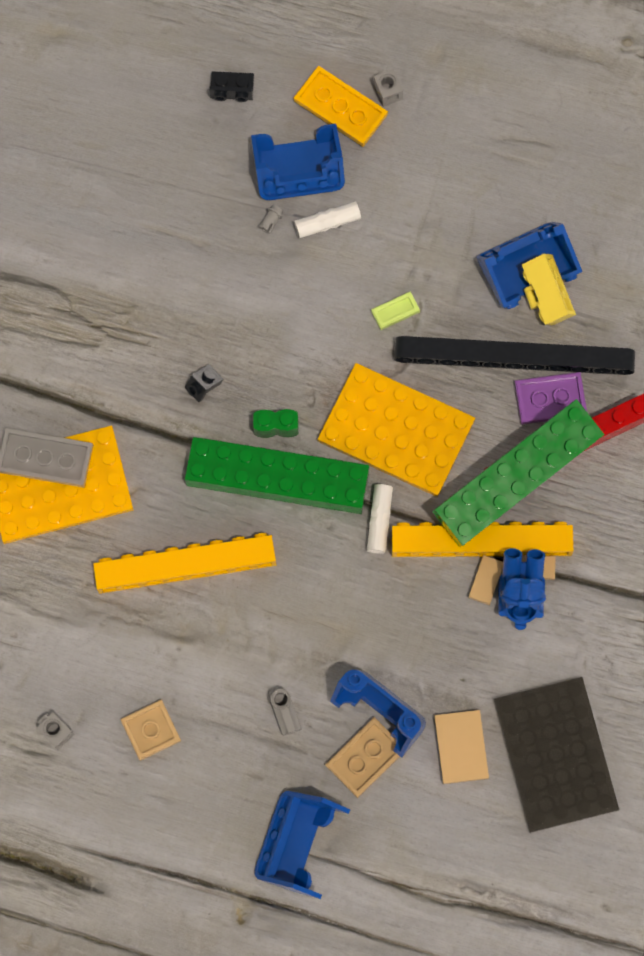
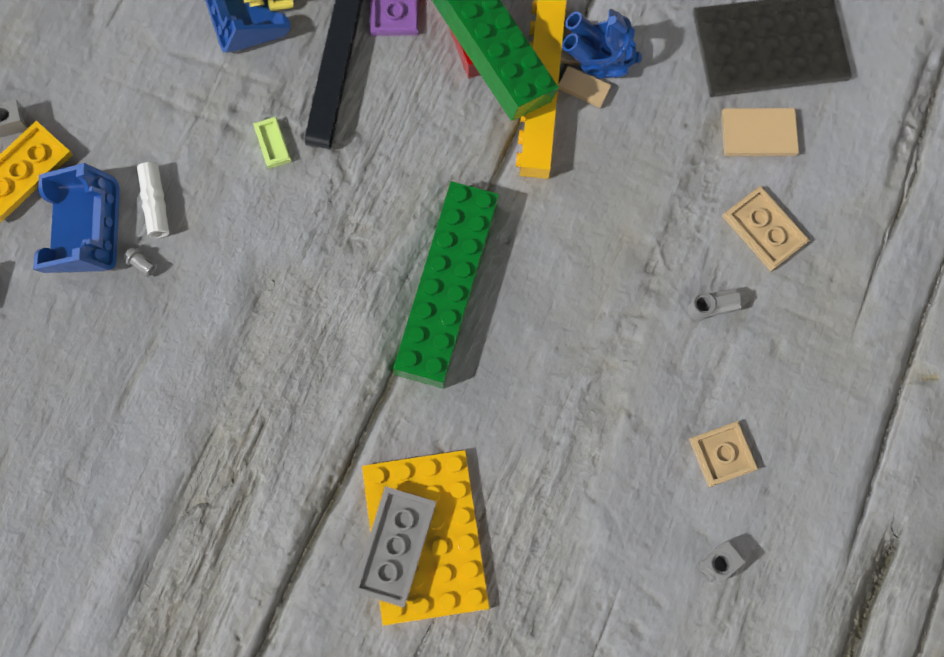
camera: 90 degrees left, 0 degrees up
(184, 564) = (538, 398): yellow brick -> none
(203, 382) = (325, 356): black bracket -> none
(282, 423) = (384, 284): green brick -> none
(291, 839) = (859, 318): blue windscreen -> none
(361, 685) = (744, 175): blue windscreen -> none
(379, 519) = (508, 183): white axle -> none
(396, 429) = (407, 157): yellow plate -> none

